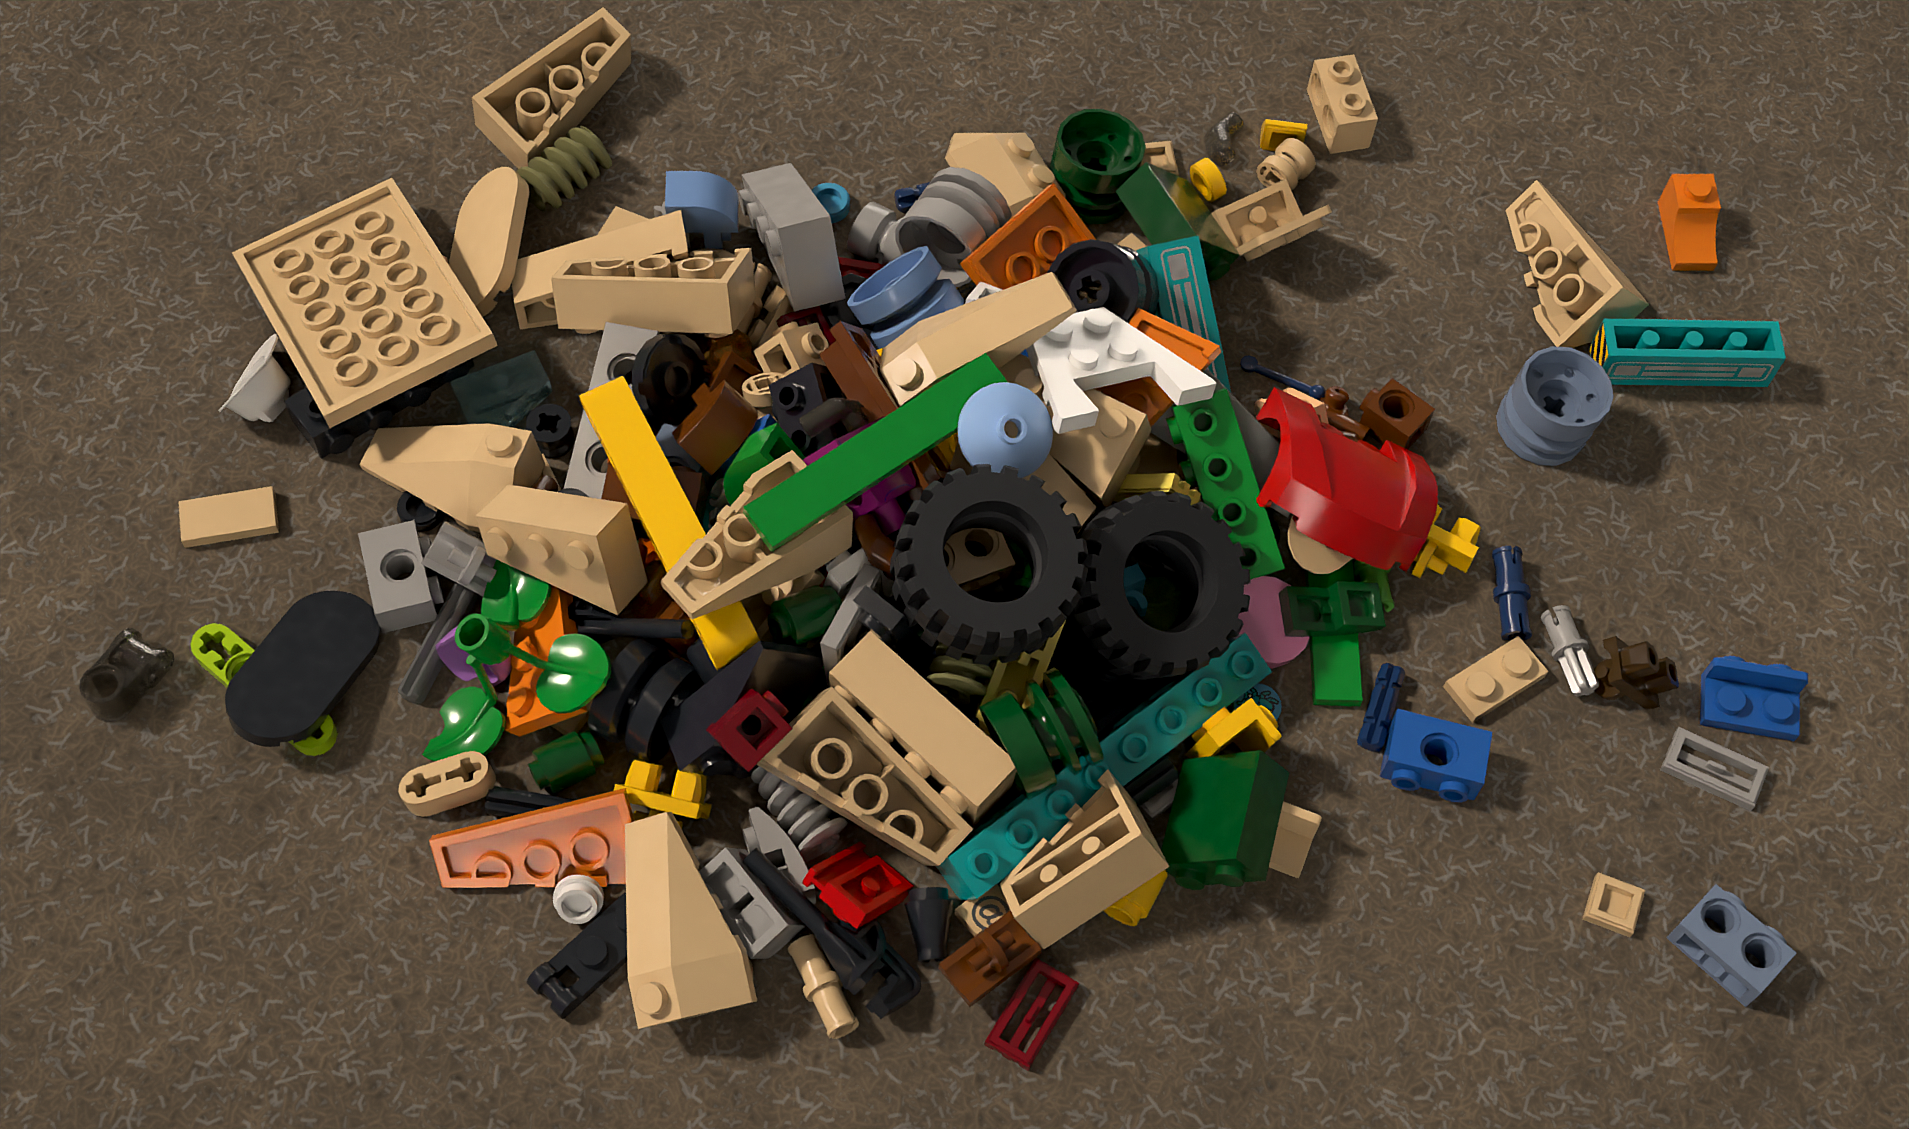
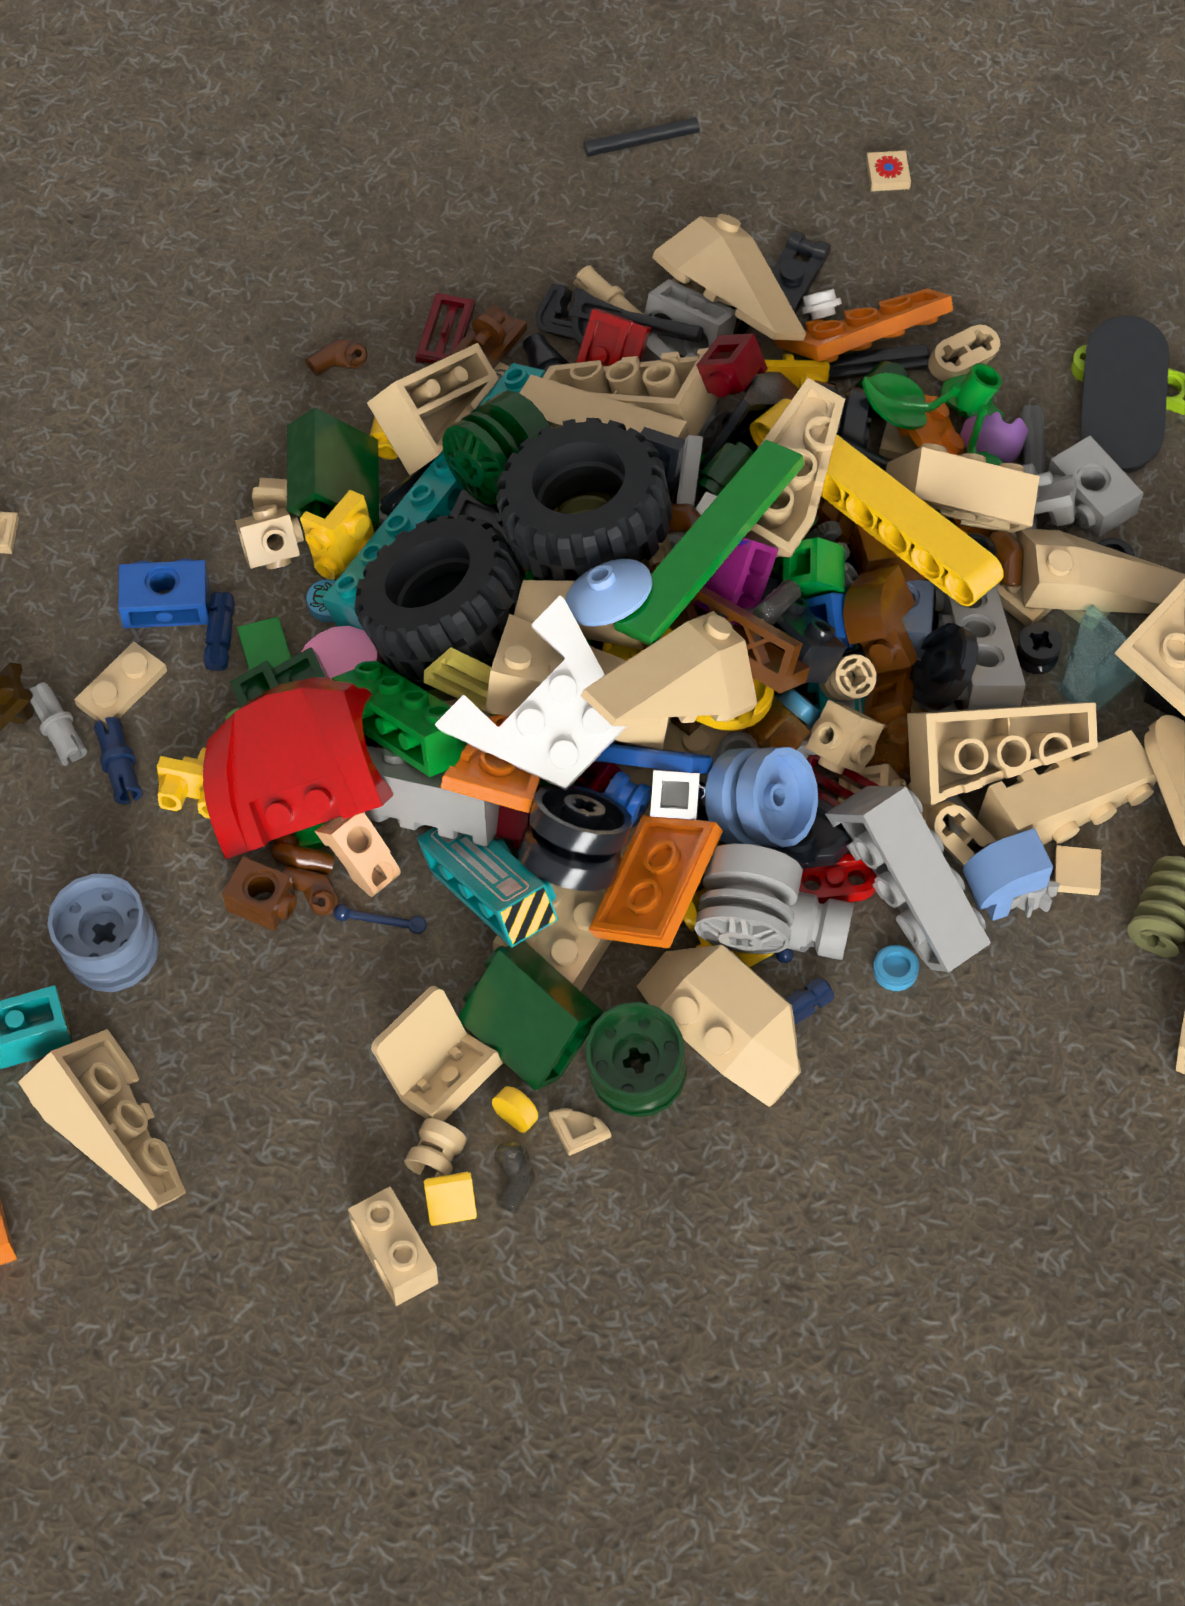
camera: 165 degrees right, 0 degrees up
(401, 1078) = (888, 170): none -> tan tile
(1167, 1019) = (339, 354): none -> reddish brown arm
(1314, 778) = (256, 530): none -> tan brick

